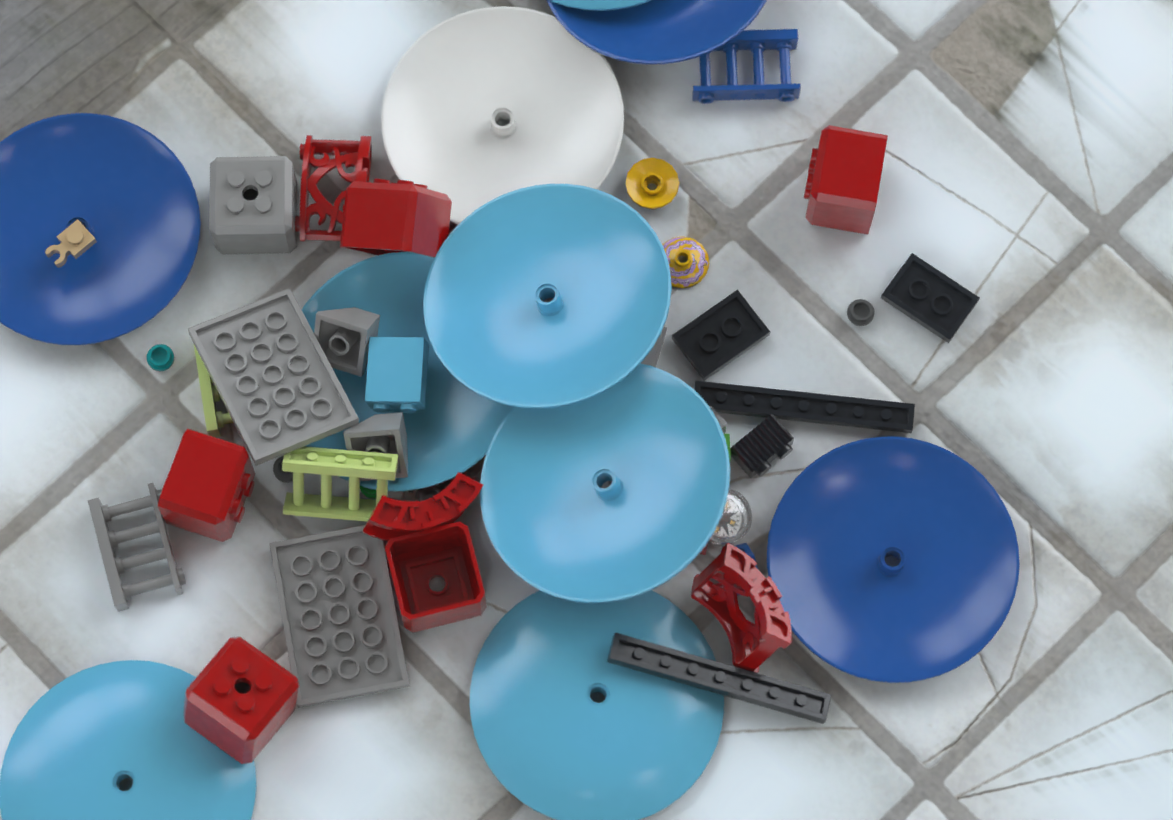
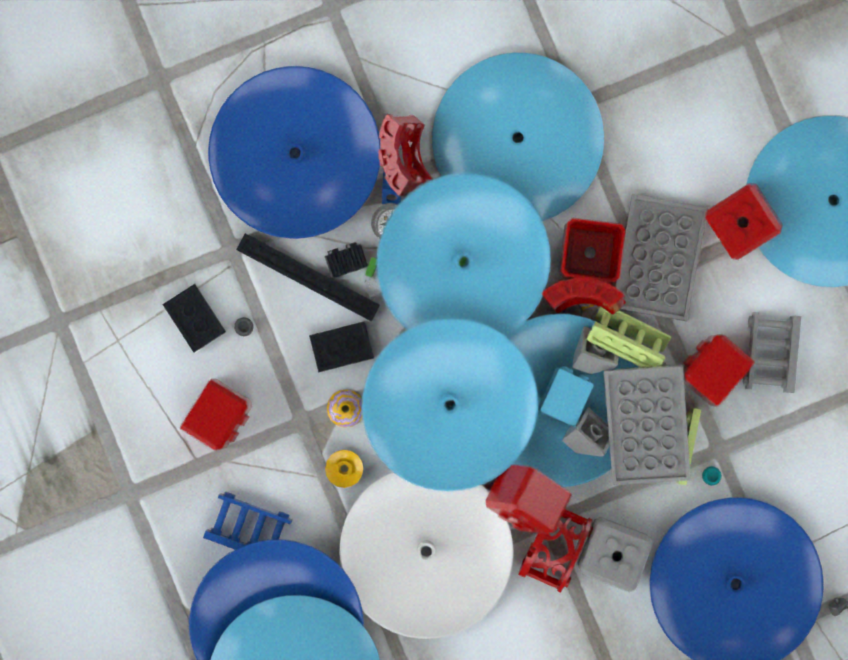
camera: 155 degrees left, 15 degrees up
(73, 241) = (743, 574): tan plate -> none
(719, 678) = (437, 118): black plate -> none

